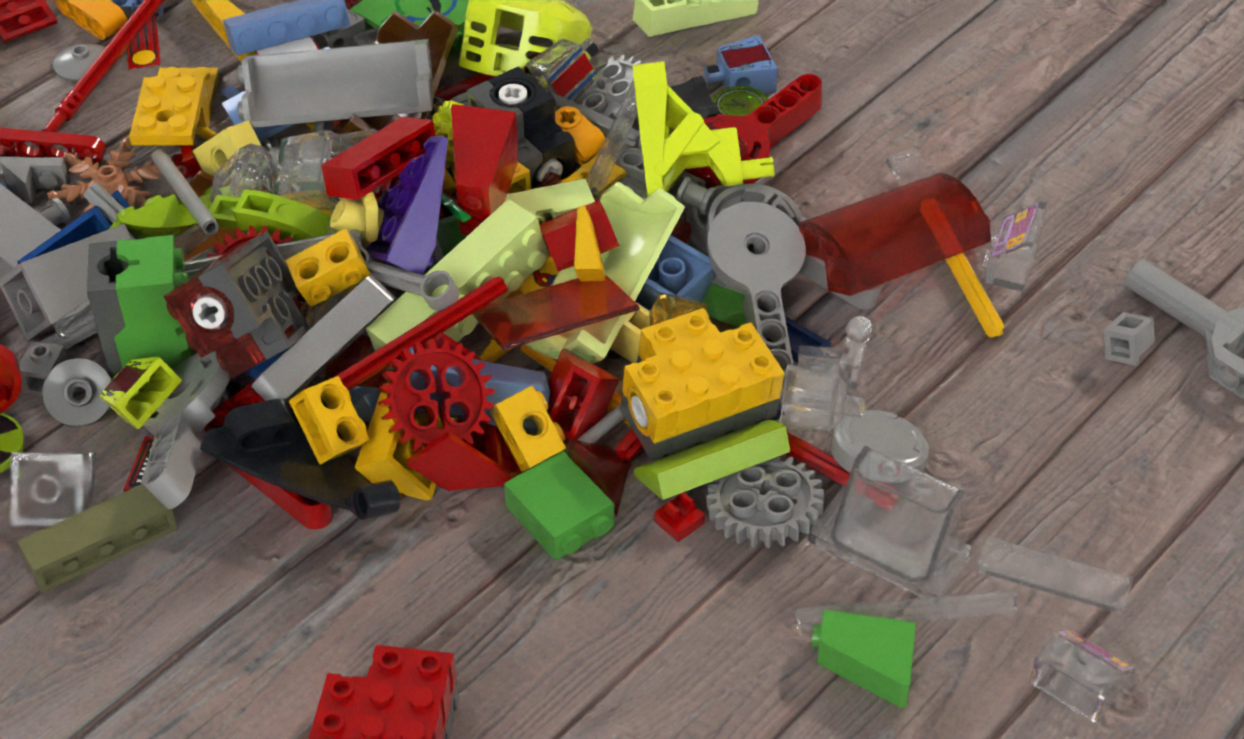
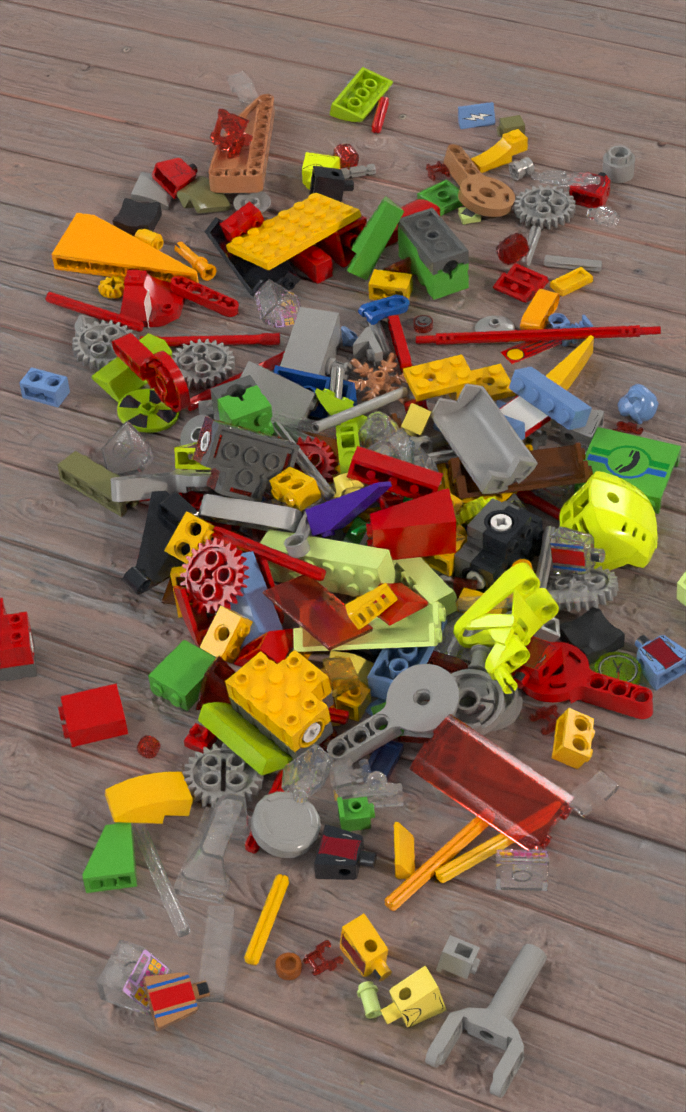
camera: 75 degrees right, 0 degrees up
(21, 118) = (423, 324): none -> tile
(587, 628) = (93, 715): none -> red brick
(674, 575) = (148, 746): none -> clear red axle
(785, 582) = (149, 798): none -> yellow slope
(797, 177) = (545, 713): none -> clear red piece
(837, 161) = (573, 738): none -> yellow brick
(877, 374) = (355, 813): none -> bright green brick
(939, 408) = (341, 855): none -> torso
(950, 354) = (403, 852): none -> yellow slope
(974, 329) = (438, 860): none -> light orange axle
(1017, 509) = (266, 919): none -> yellow axle
(1080, 469) = (330, 965): none -> clear red piece
(1093, 504) = (288, 966): none -> dark orange tile
(1099, 413) = (365, 948): none -> yellow torso
(1137, 626) = (173, 997): none -> torso
(1163, 433) = (368, 995): none -> yellowish green pin
(1187, 382) = (414, 999): none -> light yellow torso

